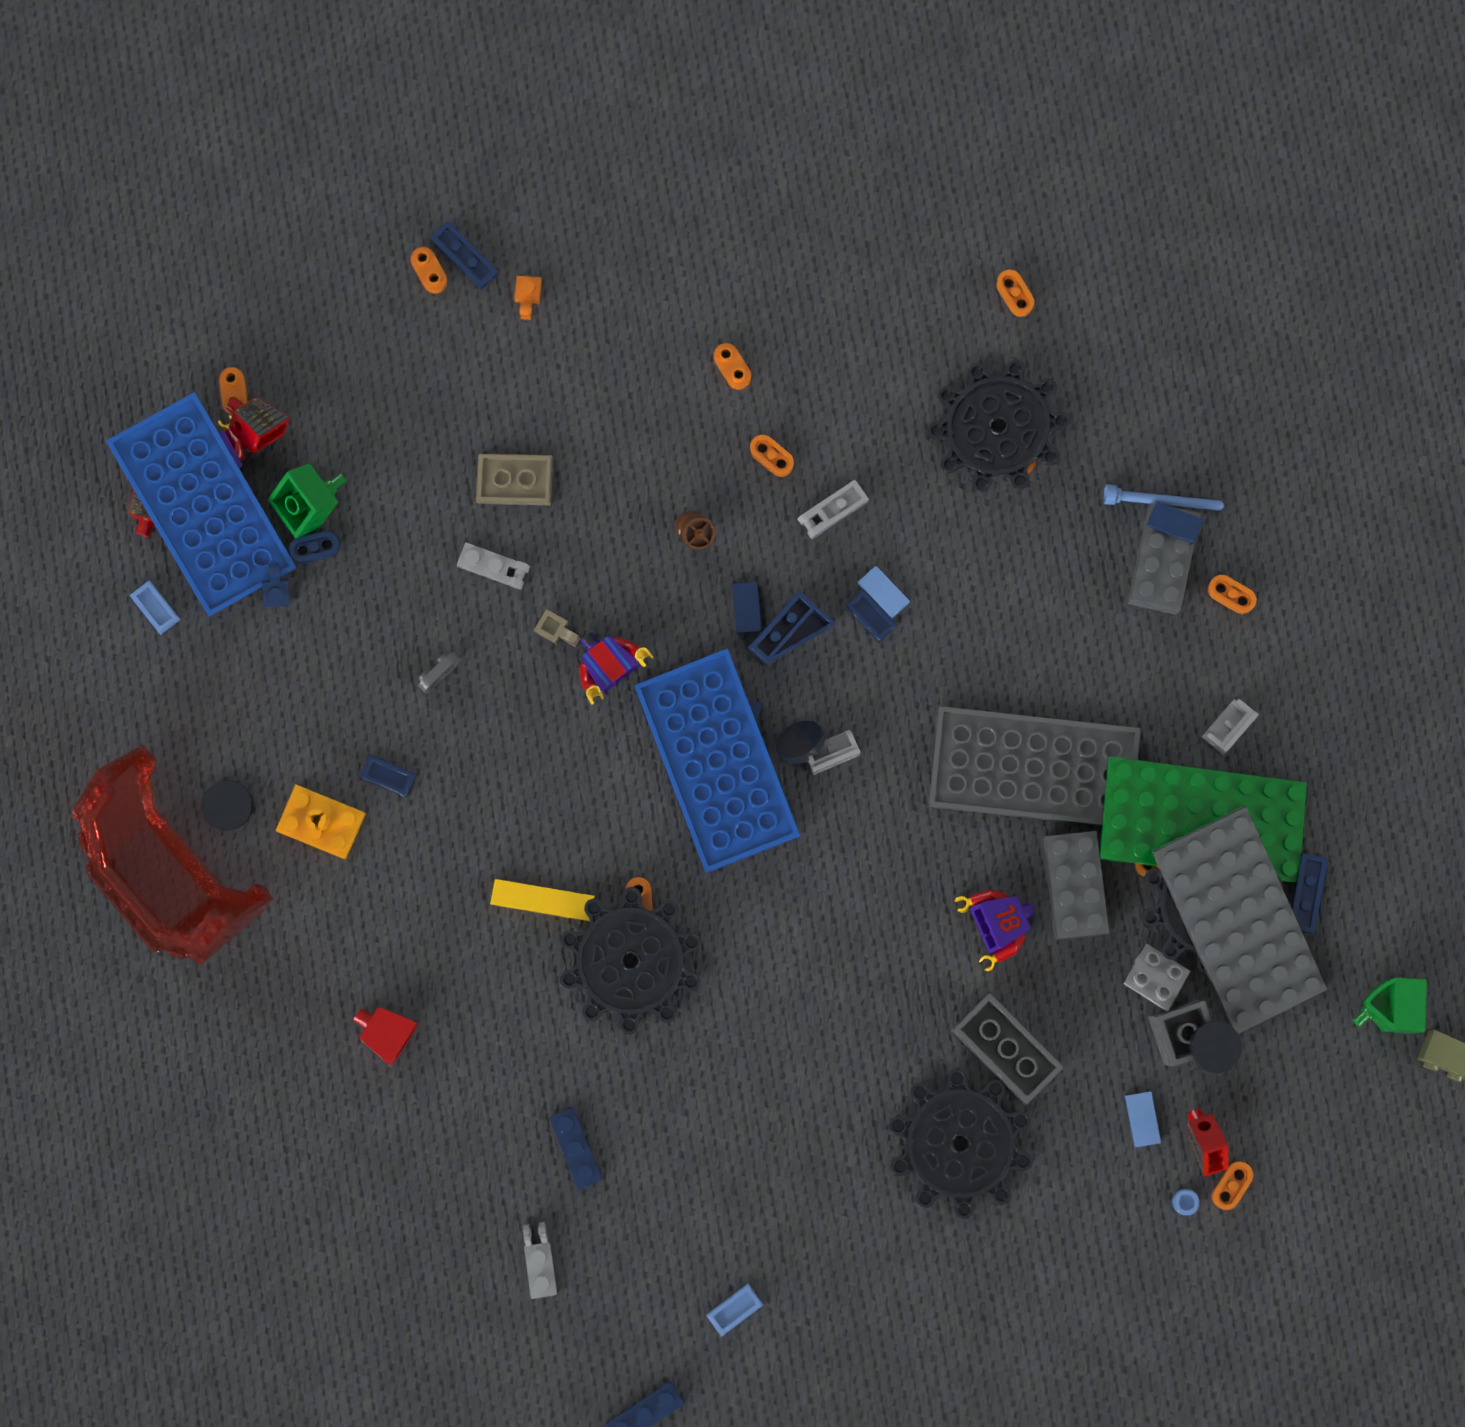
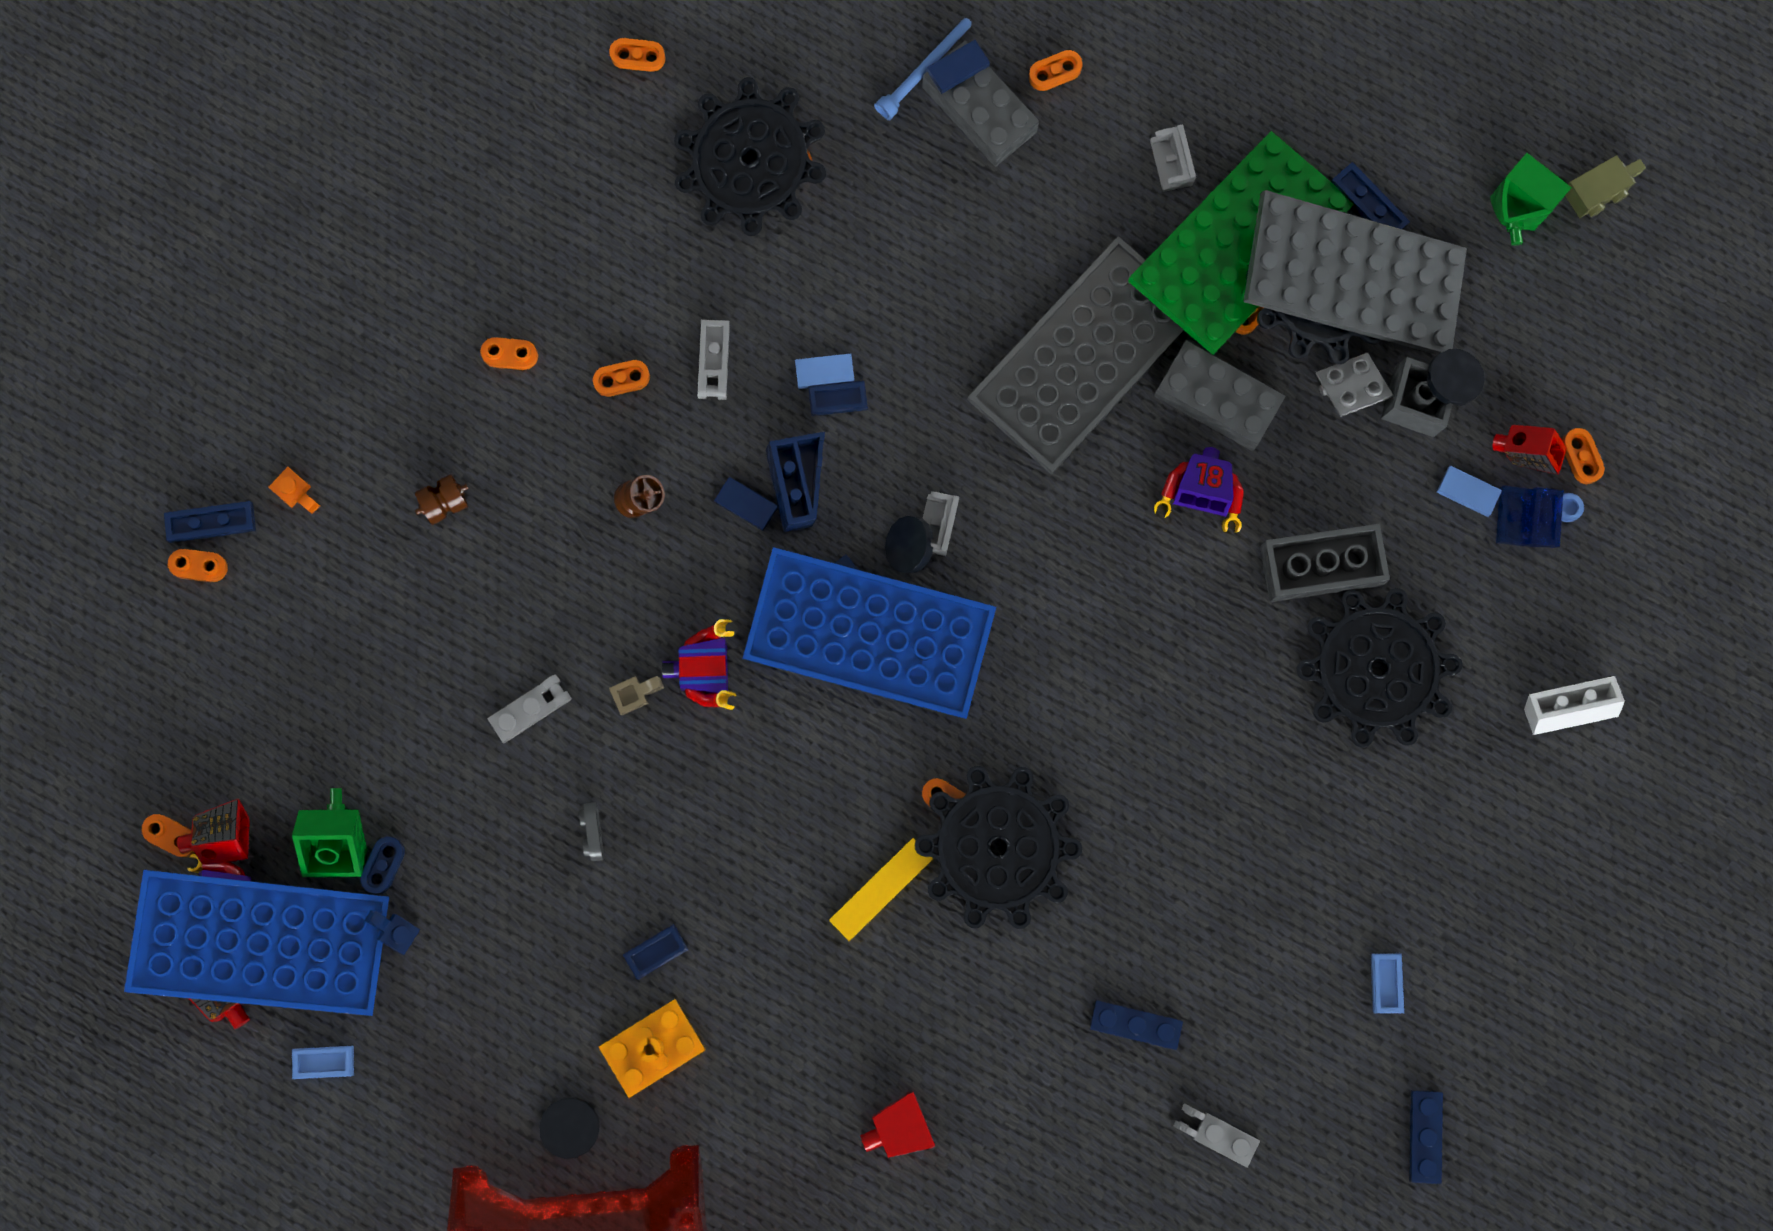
camera: 60 degrees left, 0 degrees up
(514, 479) = (461, 629): dark tan tile -> none
(591, 396) = (441, 499): none -> reddish brown wheel
(1036, 1306) = (1574, 705): none -> white brick
(1156, 1177) = (1529, 517): none -> clear blue slope

